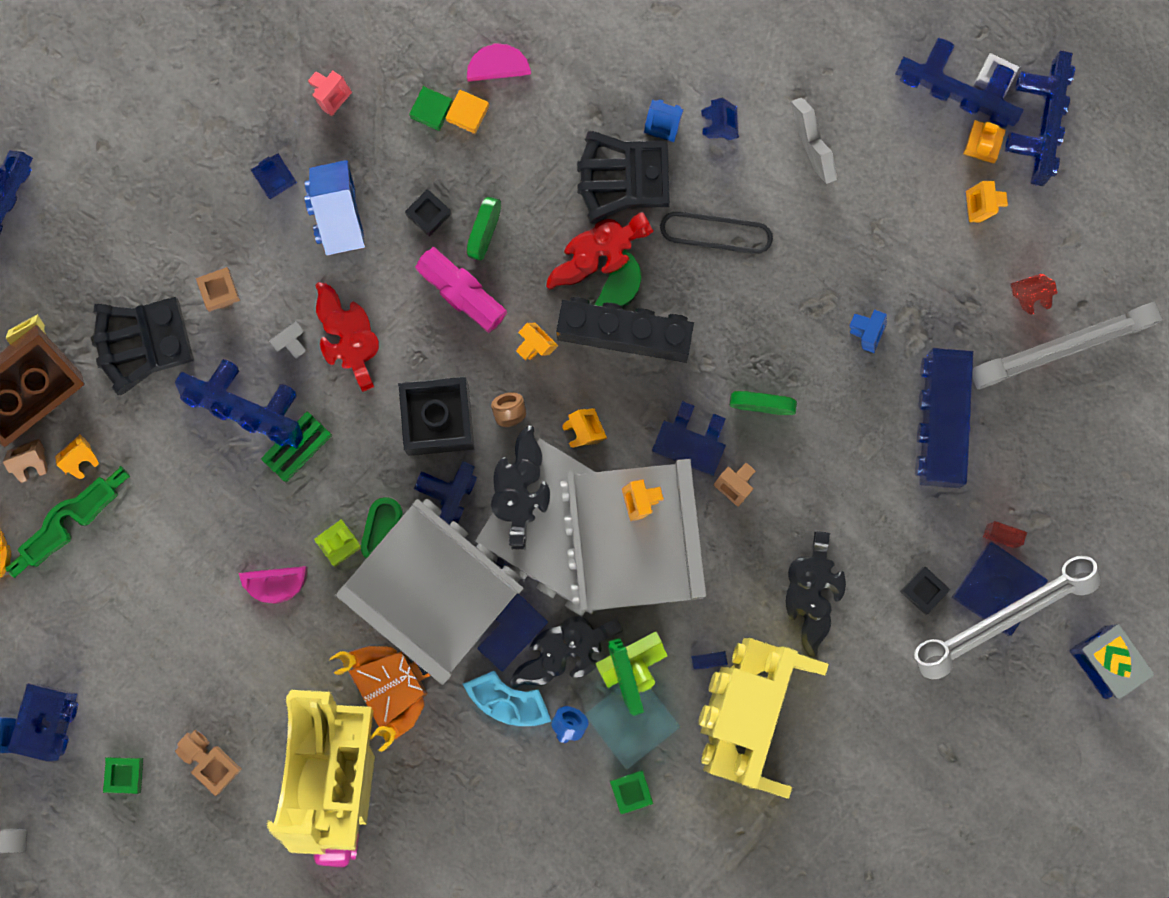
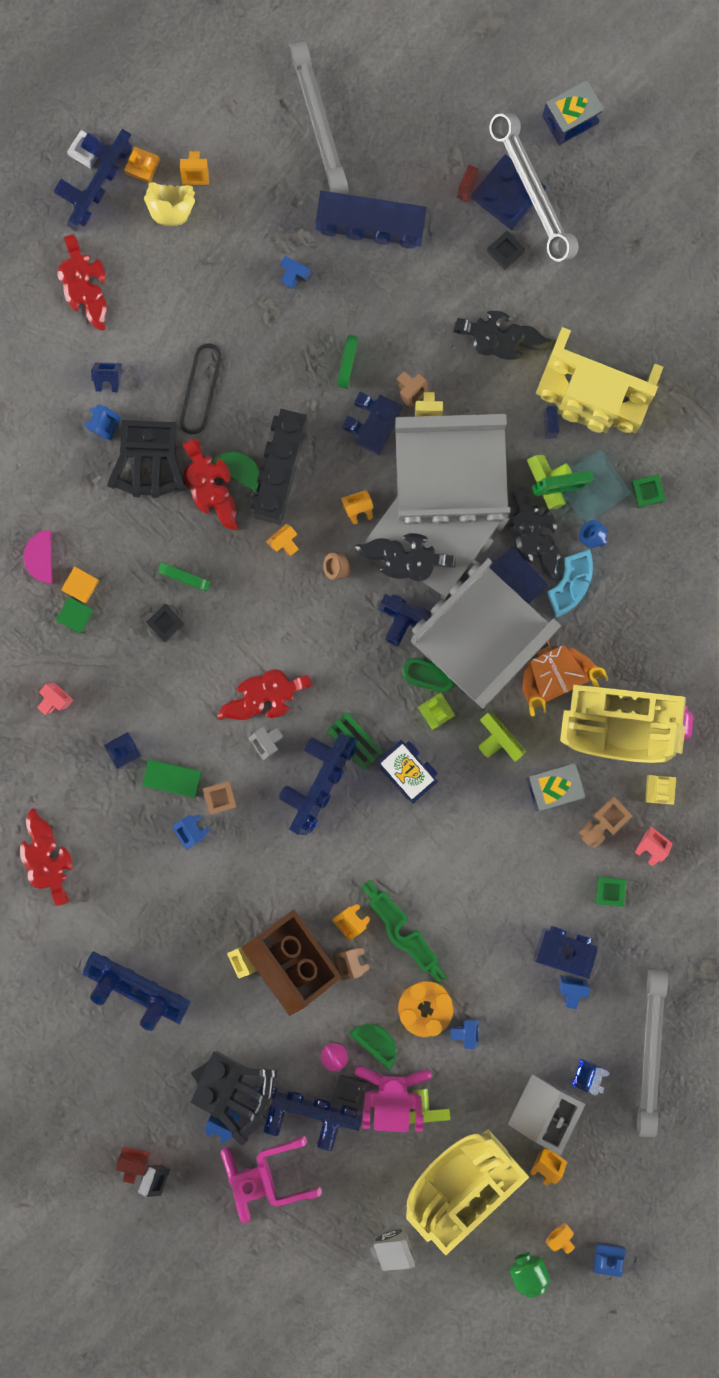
camera: 90 degrees left, 5 degrees up
(129, 96) = (41, 868): none -> red piece
(162, 337) = (252, 849): black plate -> none
(178, 257) = (189, 832): none -> blue tile
(180, 827) = (655, 844): none -> coral tile
(242, 234) = (171, 778): none -> green tile
(246, 694) = (555, 787): none -> light grey piece
(252, 831) = (660, 789): none -> light yellow tile
(255, 508) = (407, 771): none -> brick
(274, 585) = (466, 764): dark pink tile -> none
(306, 623) = (500, 738): none -> lime tile
(333, 202) = (157, 696): brick -> none
(436, 416) = (341, 622): black brick -> none
(461, 290) = (235, 598): dark pink piece -> none
(639, 499) = (425, 460): light orange tile -> none
(711, 506) = (428, 406): none -> light yellow tile
(817, 151) = (143, 298): light grey tile -> none
(839, 75) = (75, 279): none -> red piece
(938, 174) = (169, 204): none -> light yellow hair
(1034, 289) = (271, 138): clear red tile -> none
(1051, 133) = (138, 110): clear blue plate -> none

